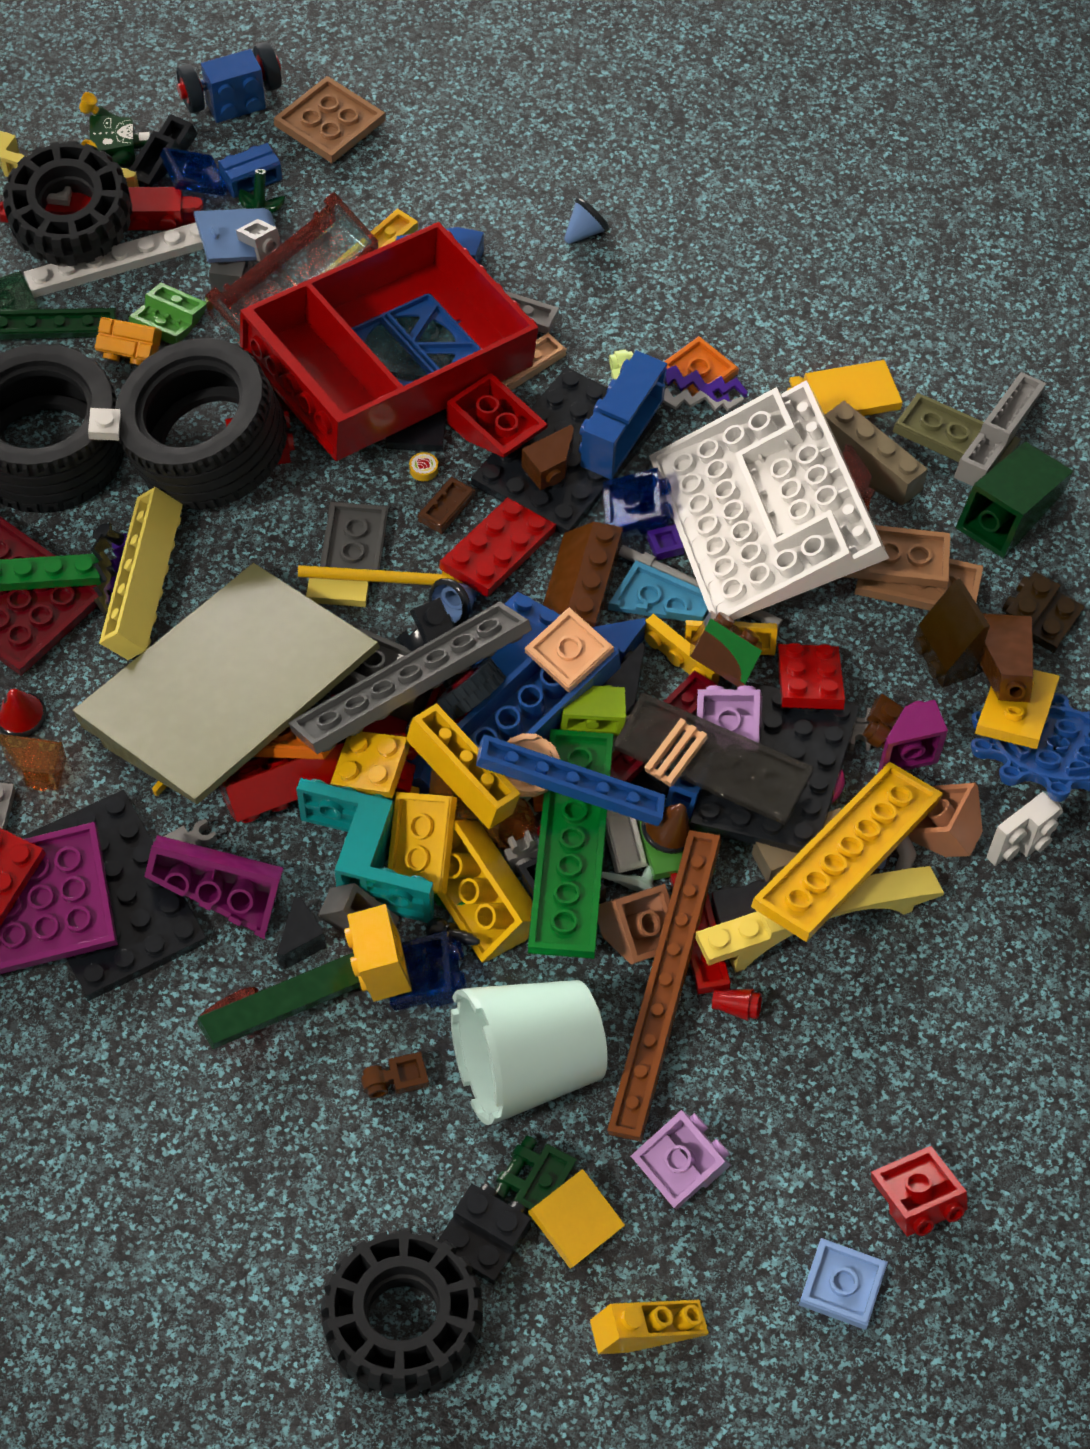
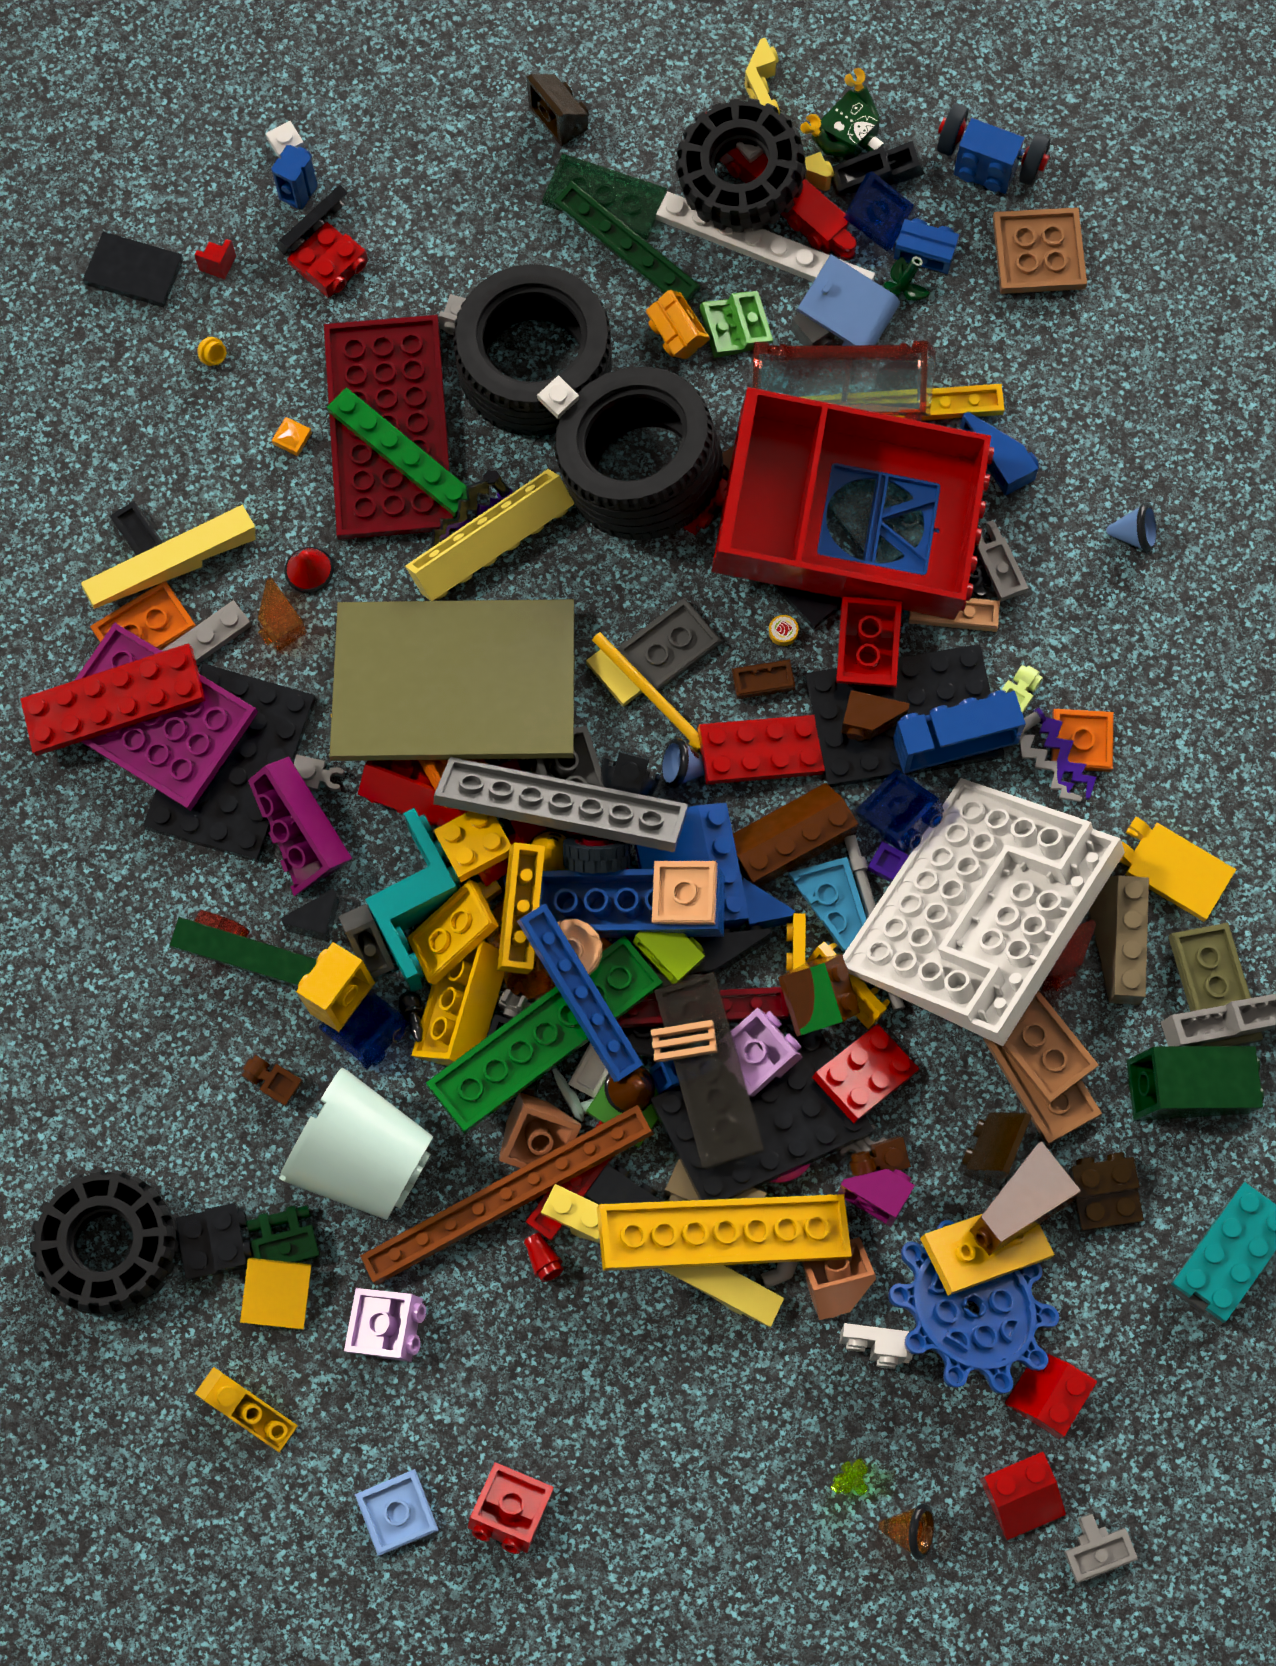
camera: 50 degrees right, 15 degrees up
(260, 236) = (854, 323): light grey bracket -> none

